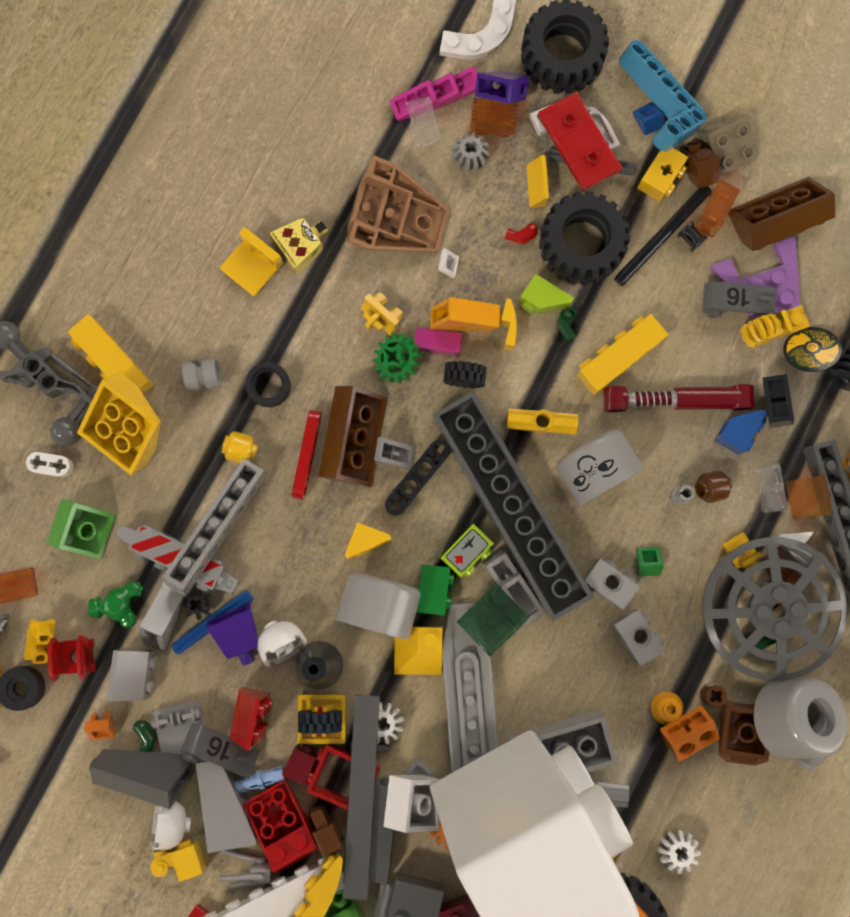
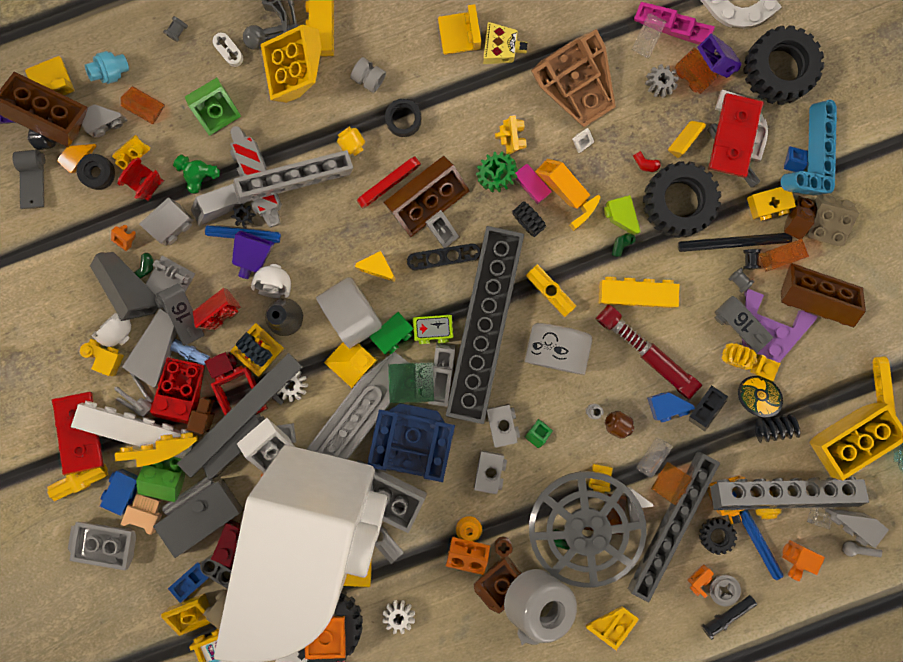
camera: 45 degrees right, 5 degrees up
(543, 674) = (411, 442): none -> dark blue slope
(699, 263) = (741, 280): none -> dark grey bush

